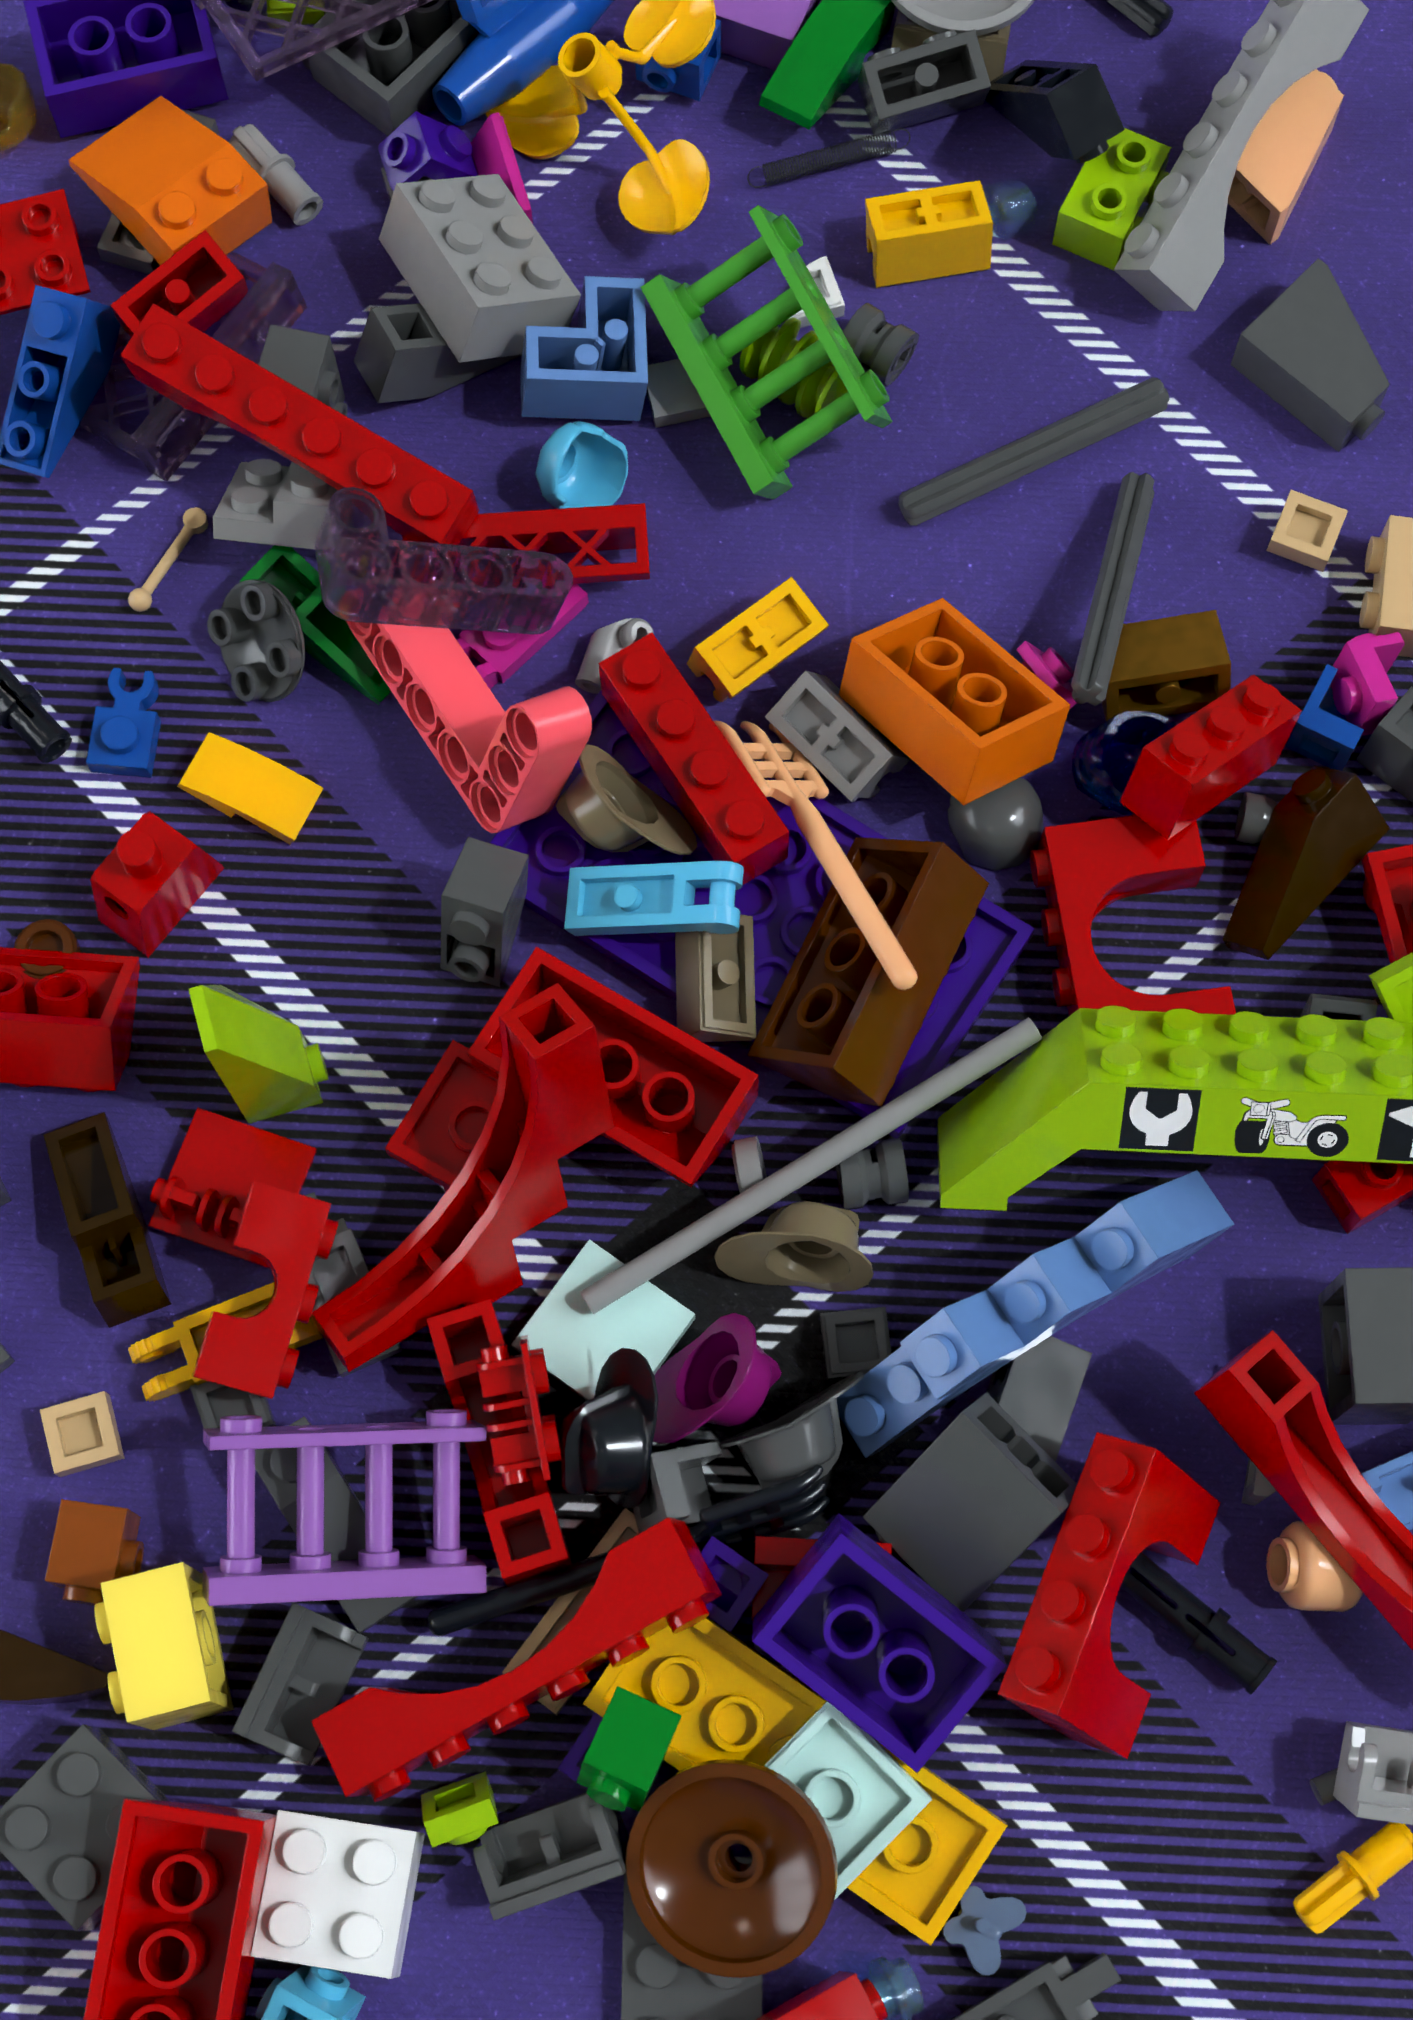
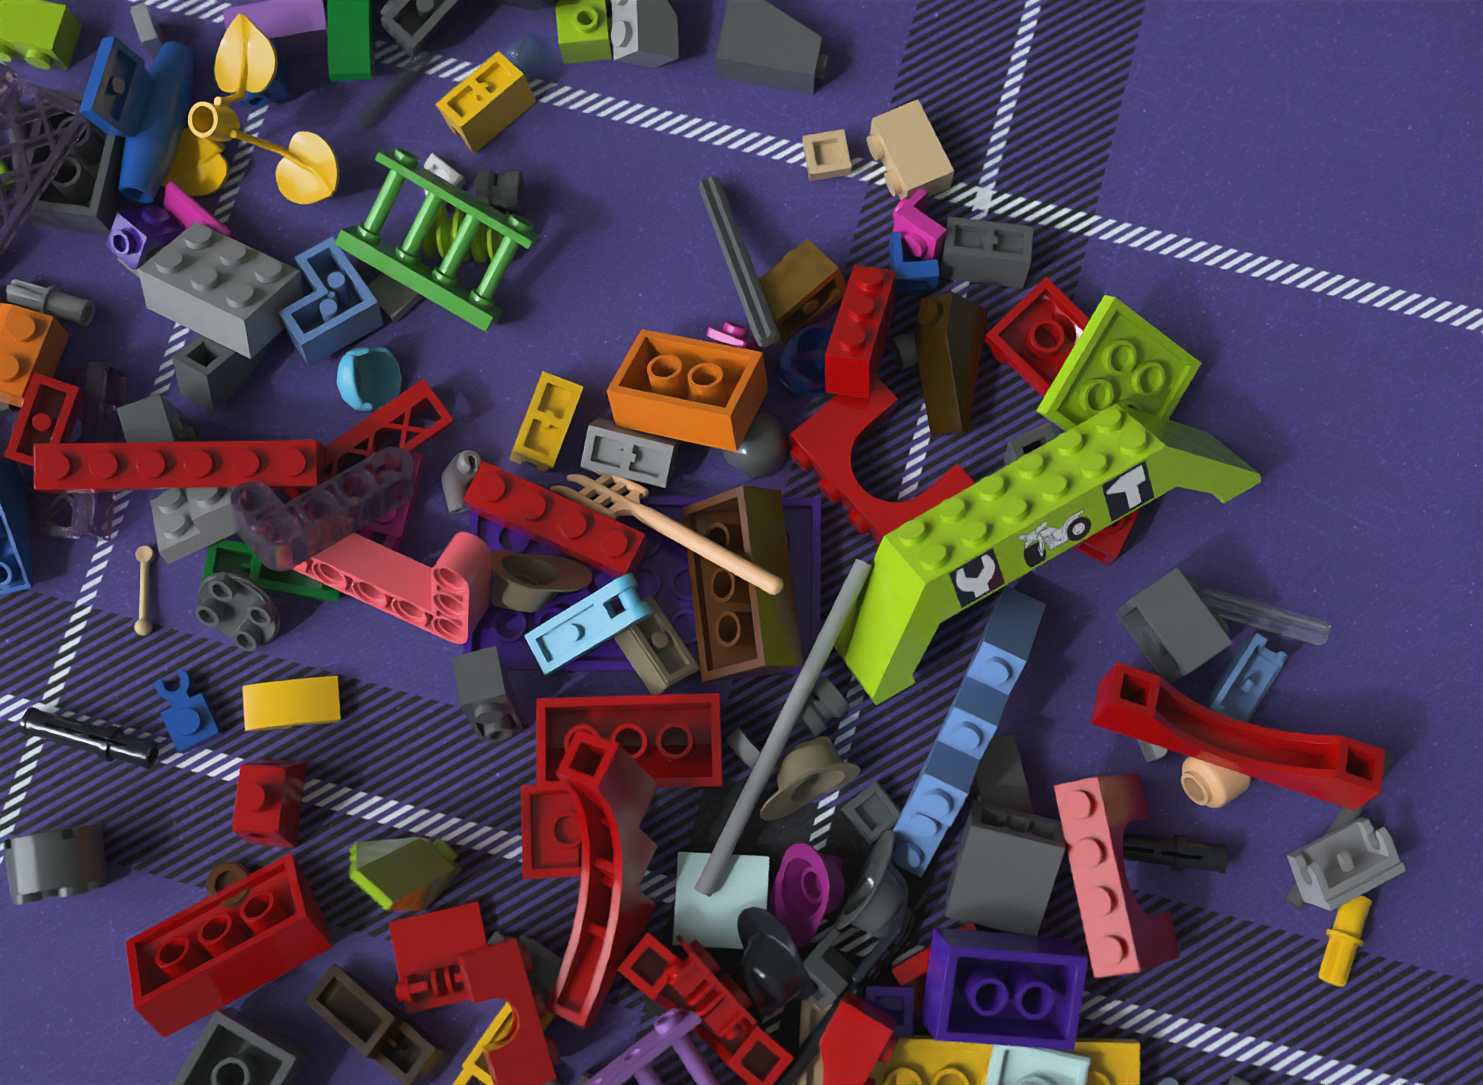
camera: 30 degrees left, 5 degrees up
(1033, 451) = (634, 202): dark grey axle -> none

